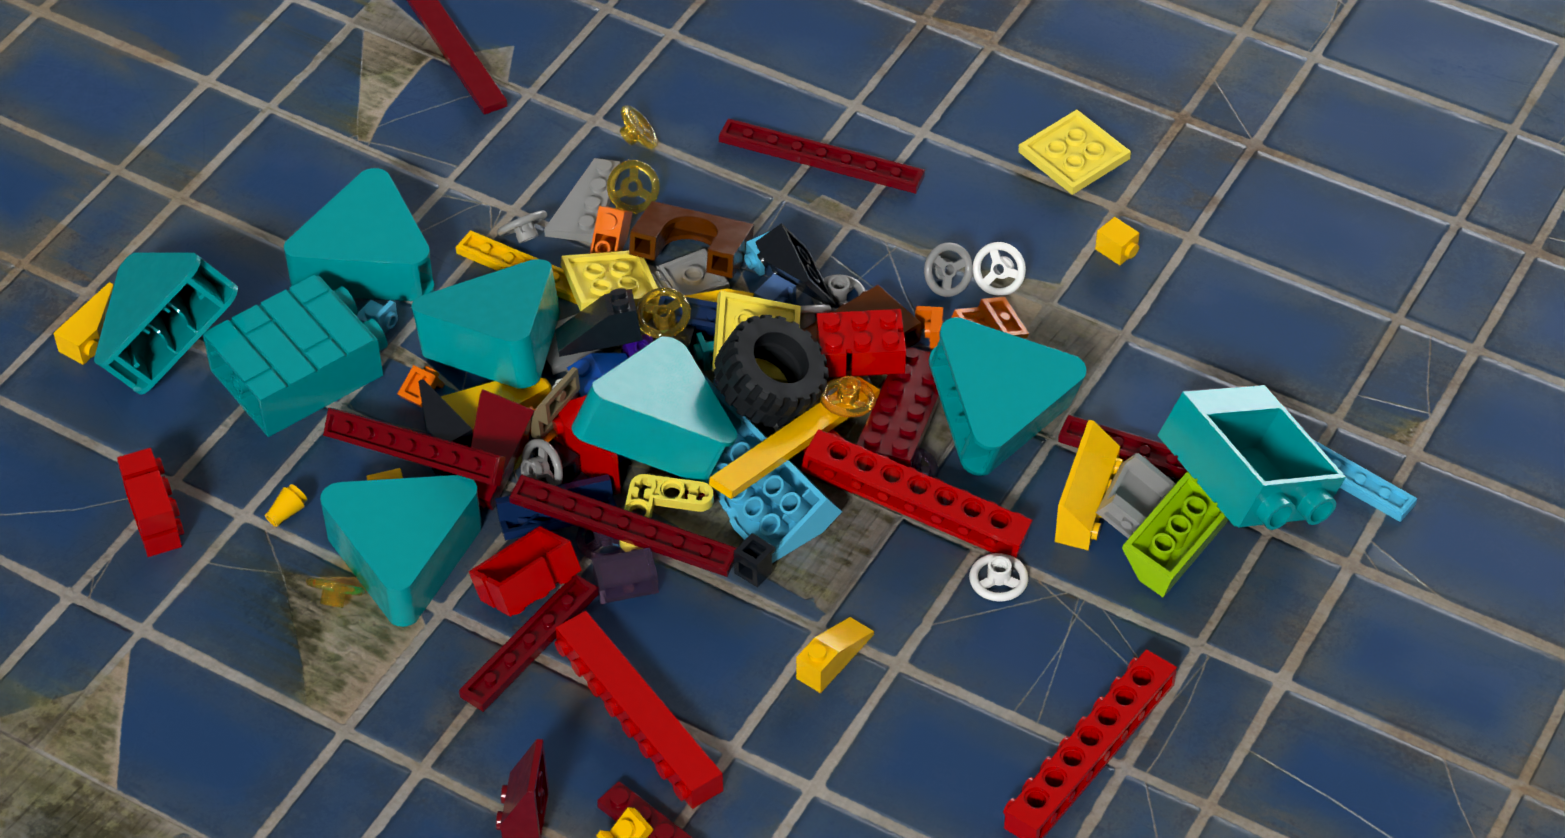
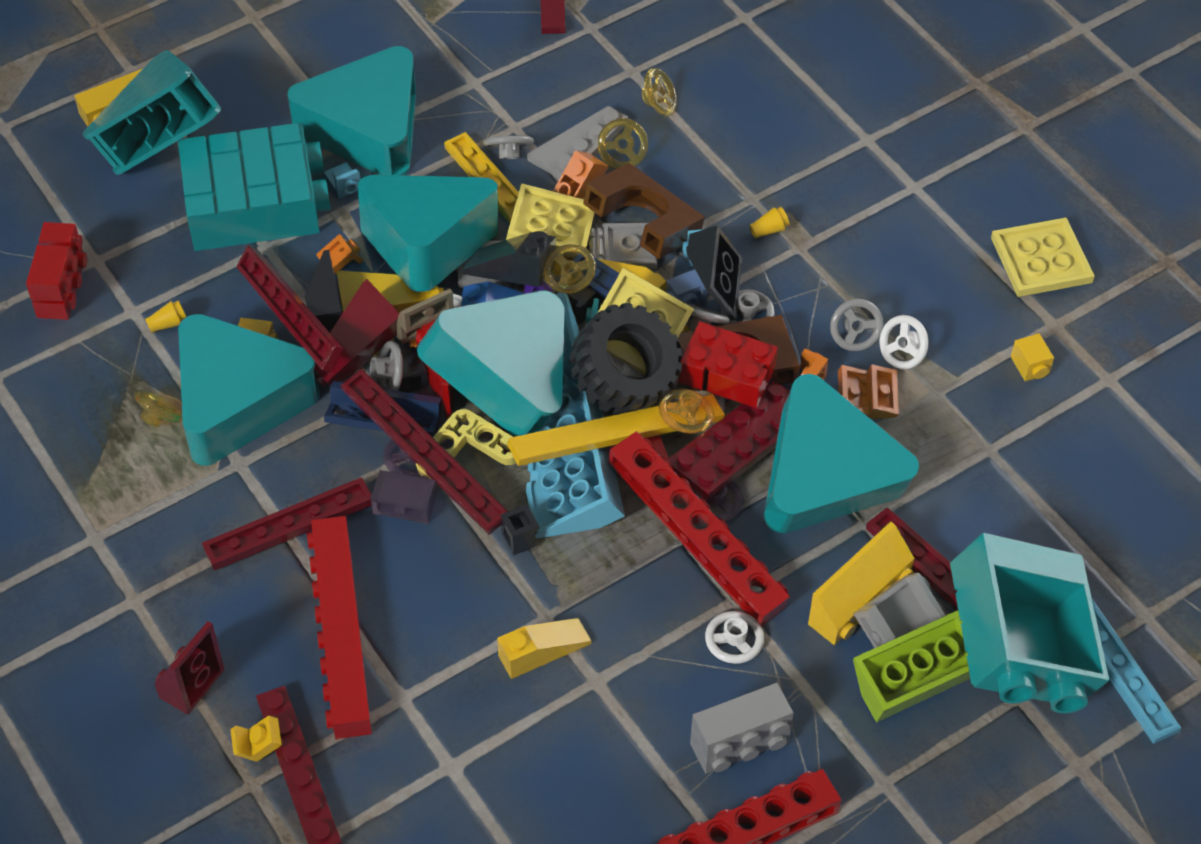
camera: 25 degrees right, 5 degrees up
(525, 571) = (316, 458): red piece -> none
(814, 208) = (771, 222): none -> yellow cone
(822, 156) = (810, 177): dark red tile -> none
(1057, 645) = (741, 728): none -> light grey brick

